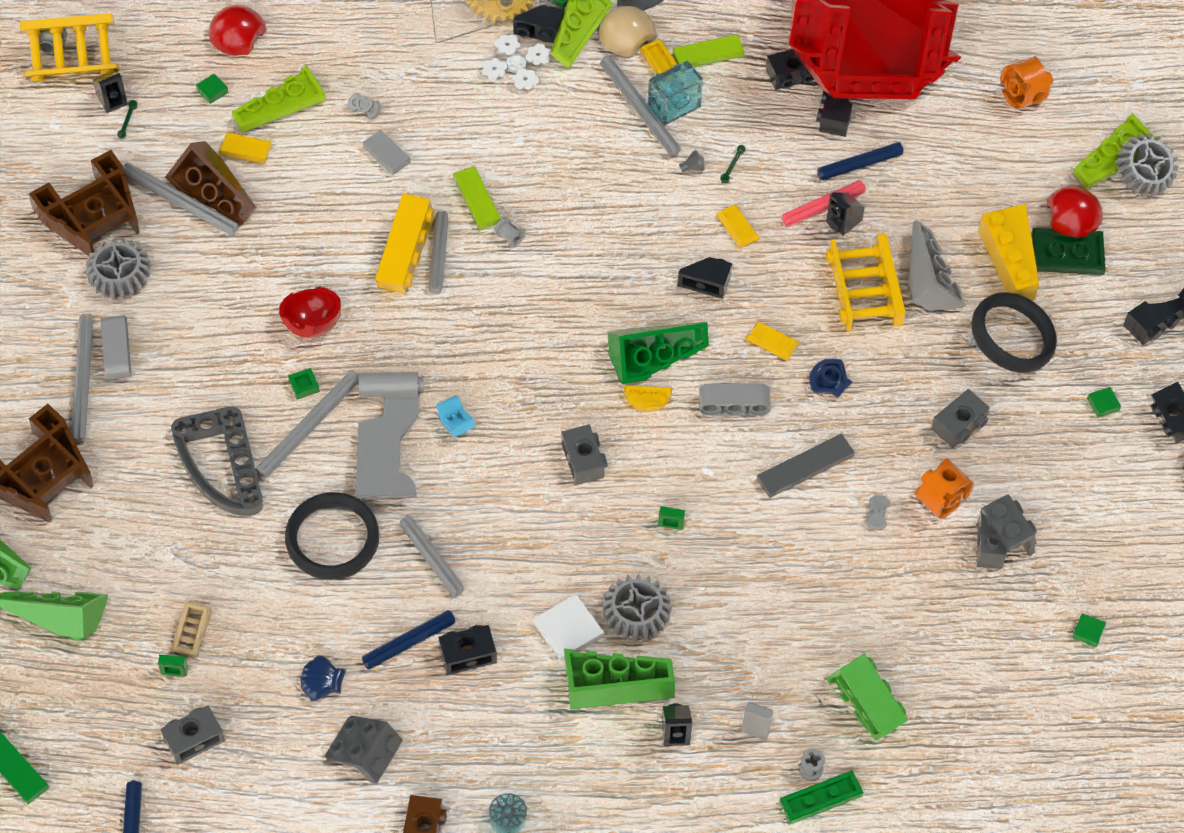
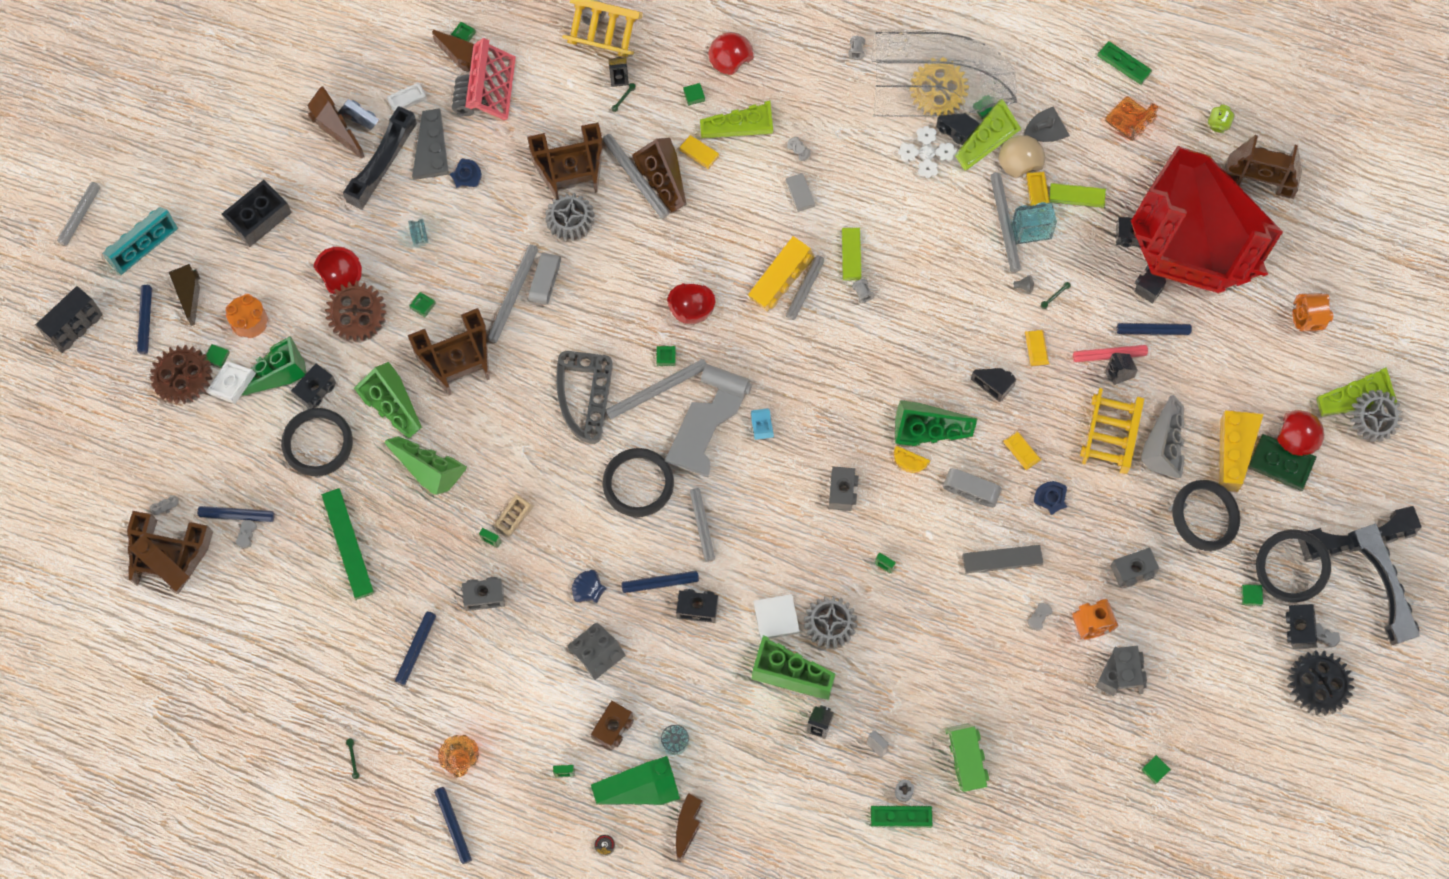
camera: 25 degrees right, 10 degrees up
(1136, 312) = (1293, 534): none -> black tyre

